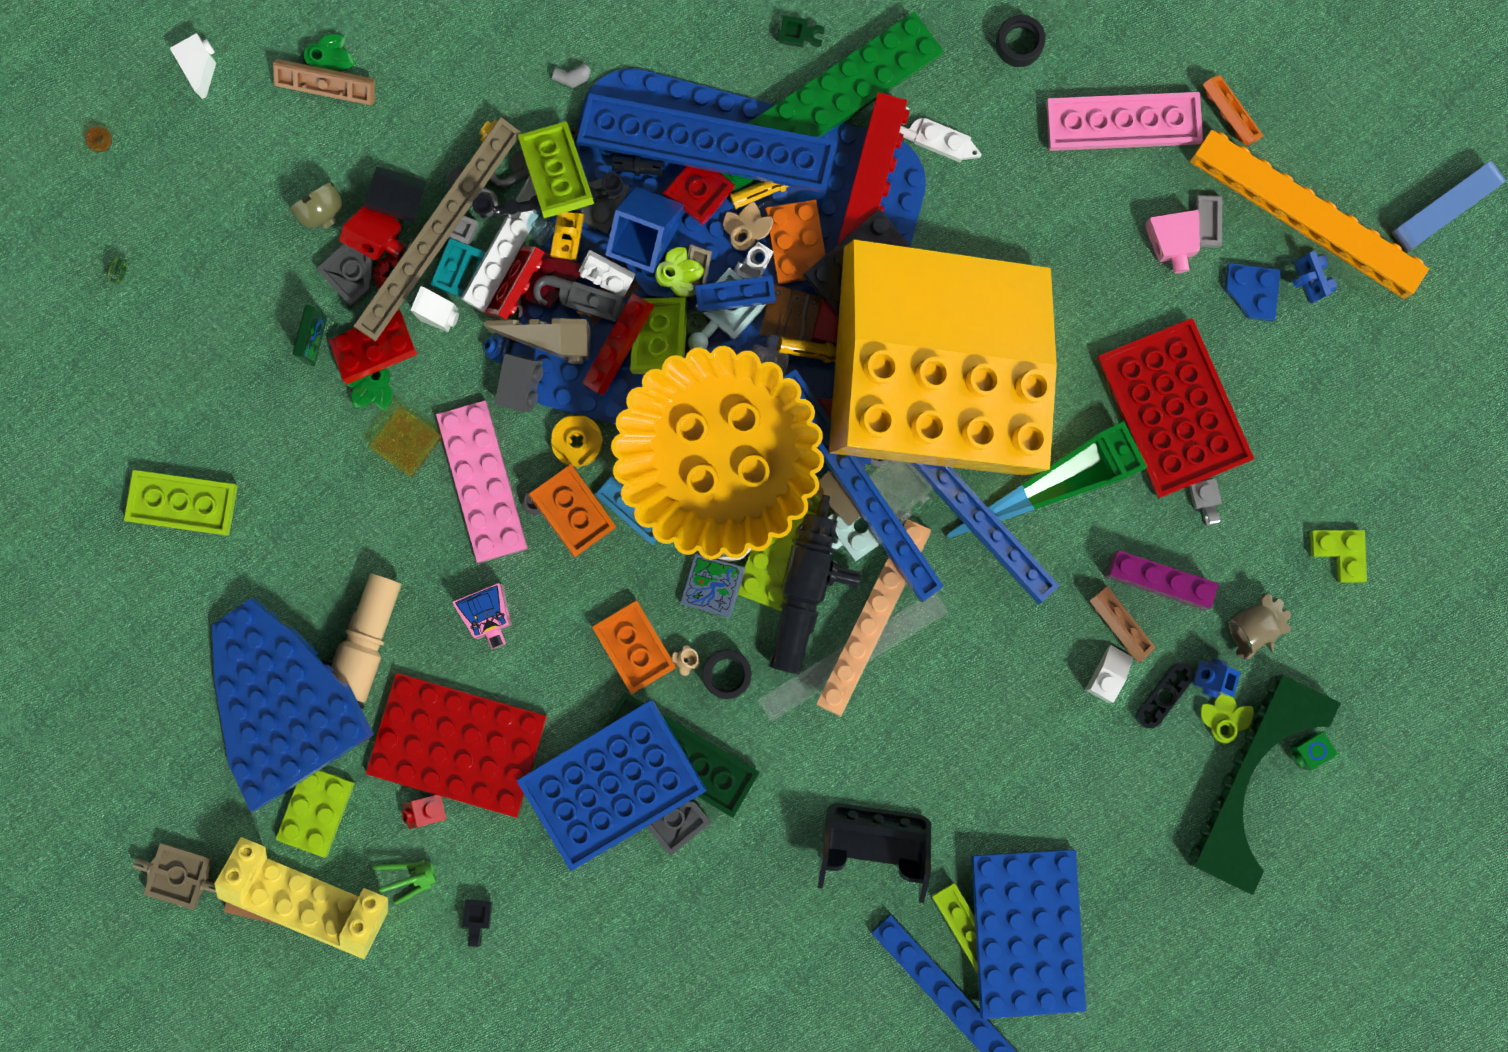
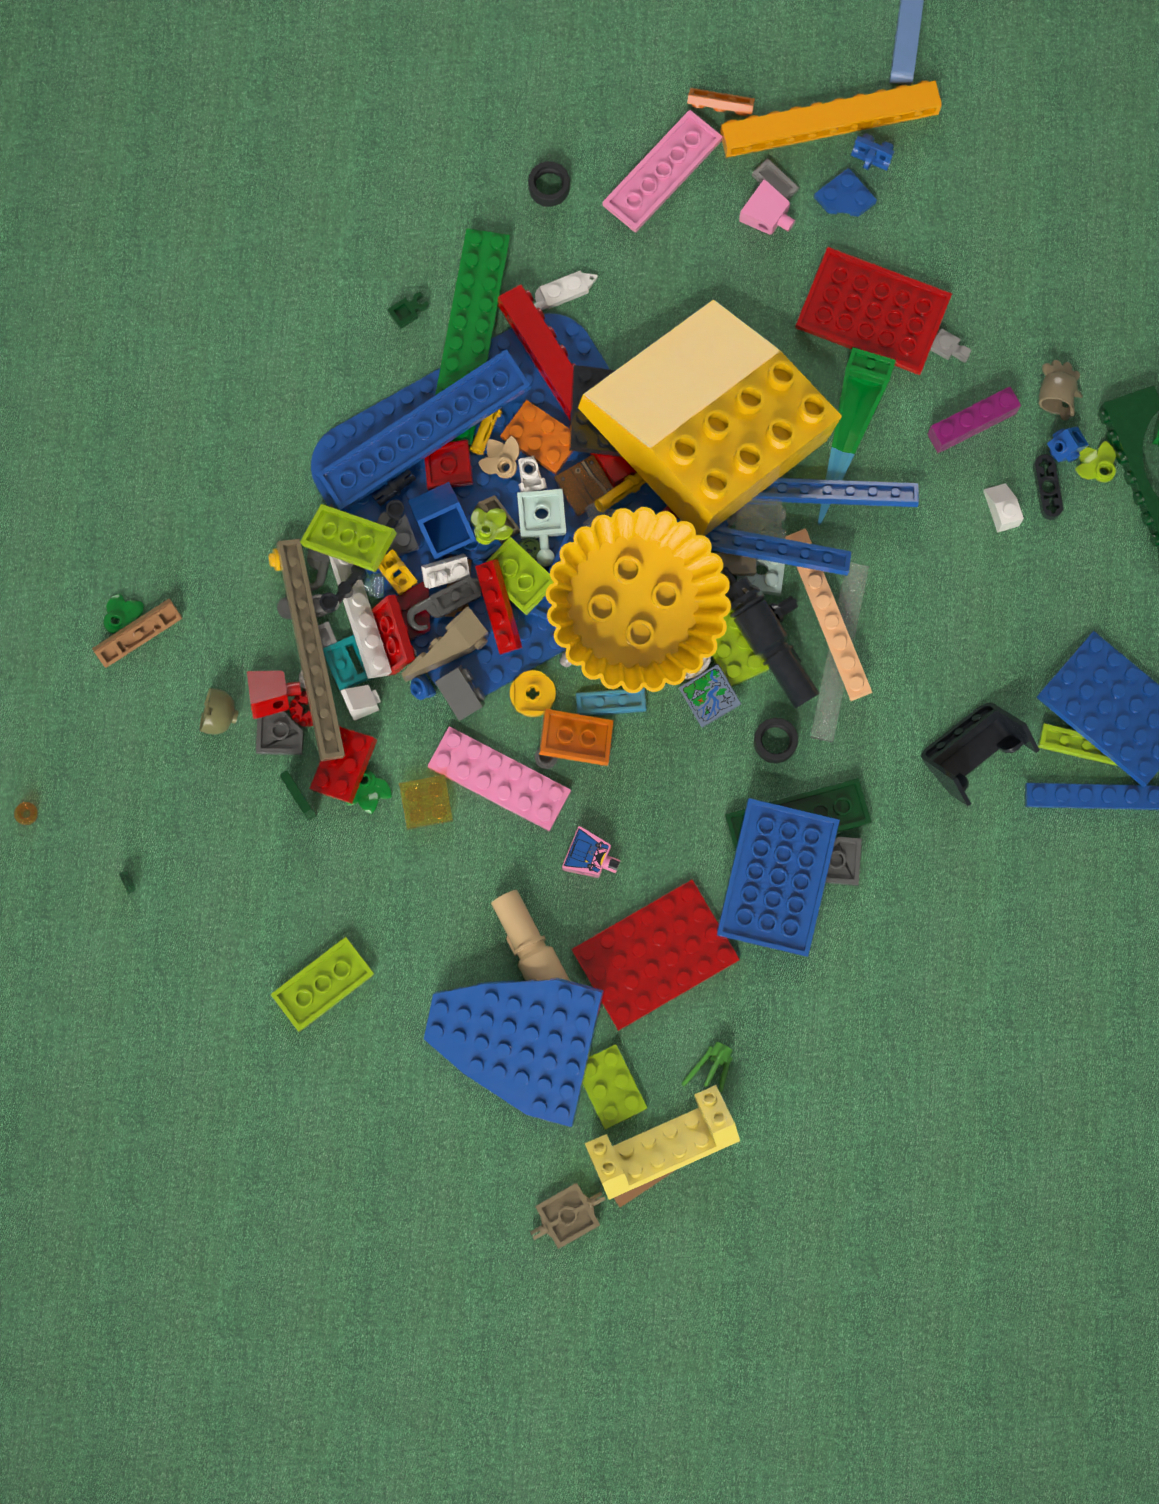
camera: 45 degrees left, 5 degrees down
(196, 62) = (40, 702): white slope -> none
(395, 194) = (259, 655): black slope -> none
(423, 812) = (678, 1016): bracket -> none
(476, 916) = (780, 1045): black plate -> none
(574, 77) = (294, 475): light grey arm -> none
(634, 647) = (701, 782): orange plate -> none
(691, 657) = (741, 757): tan plate -> none
(735, 294) = (539, 503): blue plate -> none
(1122, 624) = (978, 469): medium nougat plate -> none
(1348, 548) = (1061, 292): lime plate -> none

